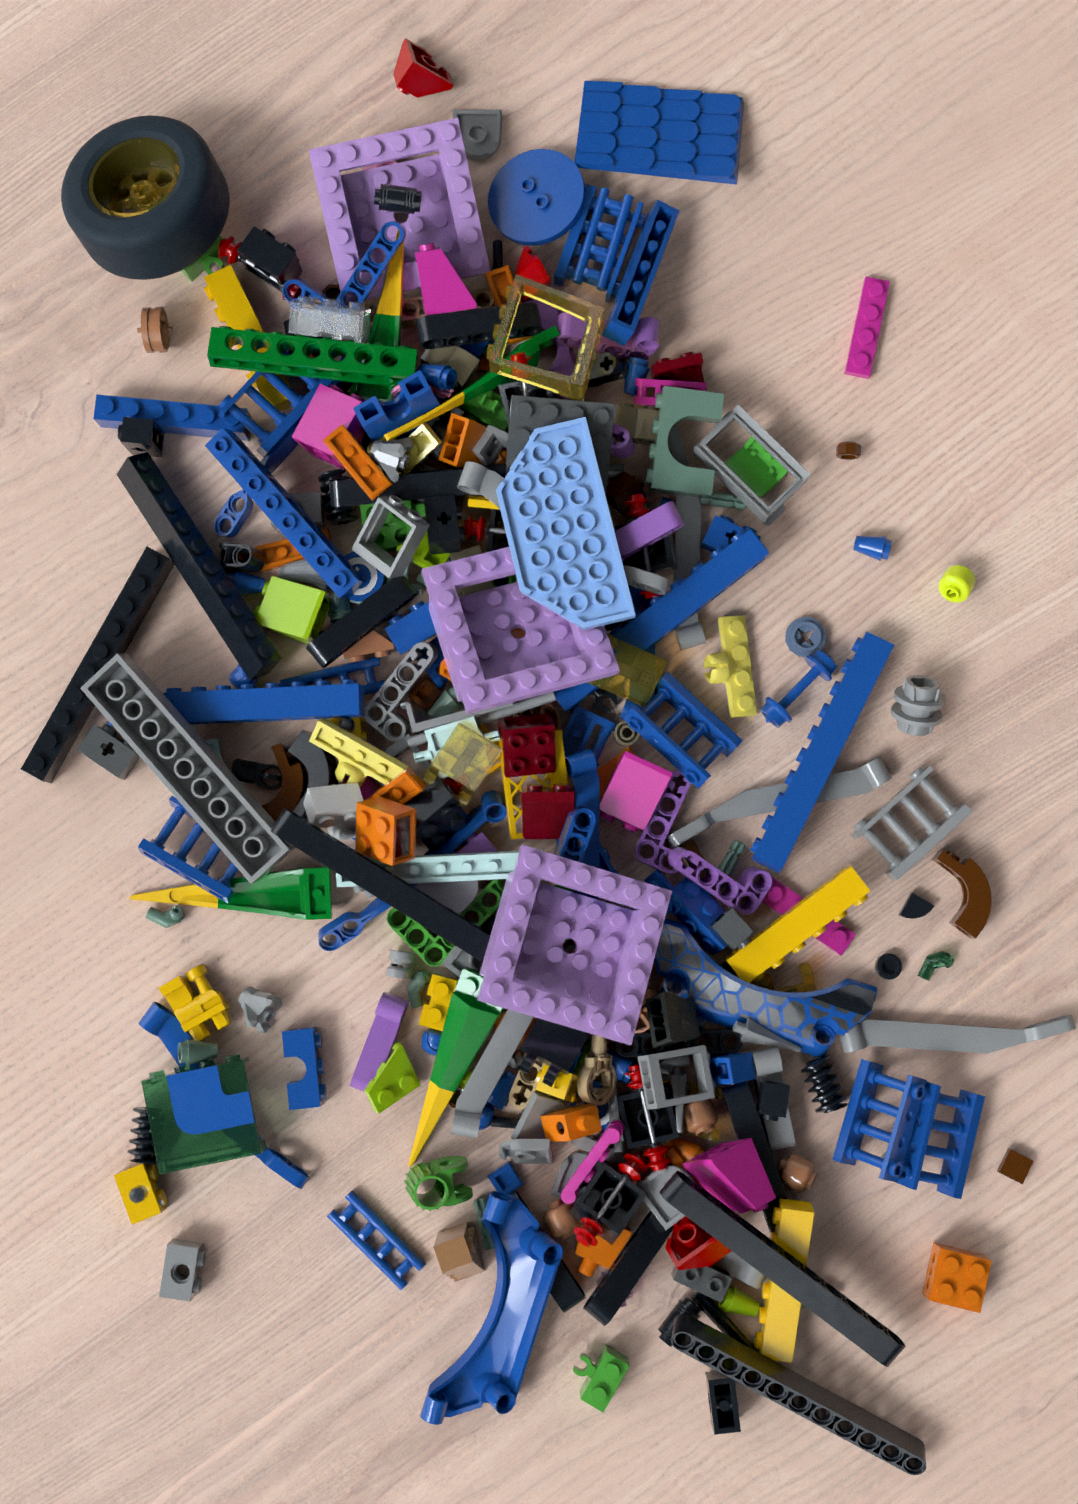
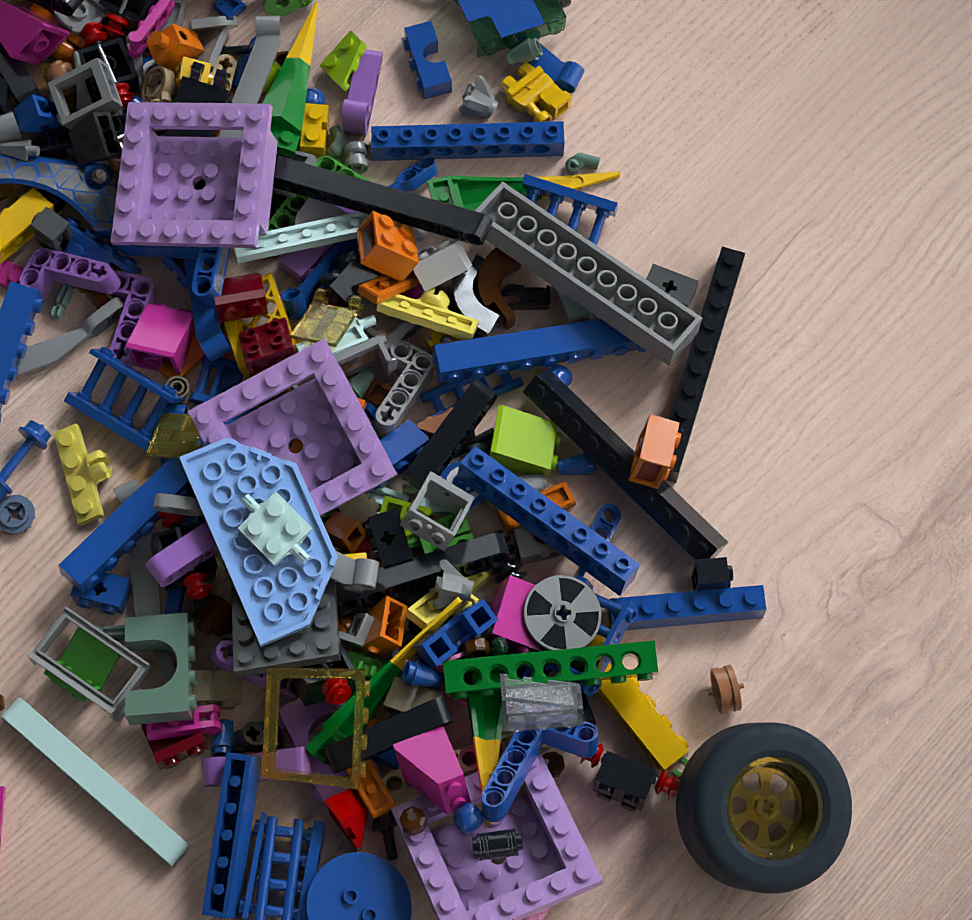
camera: 165 degrees right, 15 degrees down
(162, 552) = (655, 451): none -> orange piece
(241, 557) = (592, 485): black piece -> none
(279, 960) = (467, 141): none -> blue brick
(302, 427) = (575, 599): none -> light grey piece
(357, 462) = (483, 571): orange tile -> none
(360, 389) = (499, 647): none -> clear green arm
(381, 391) = (476, 648): none -> reddish brown tile
(420, 231) = (468, 818): none -> blue piece
(471, 246) = (413, 820): none -> reddish brown tile
(486, 533) = (344, 531): none -> reddish brown brick
(551, 522) = (275, 529): none -> light aqua plate
(761, 360) = (95, 781): none -> light aqua beam

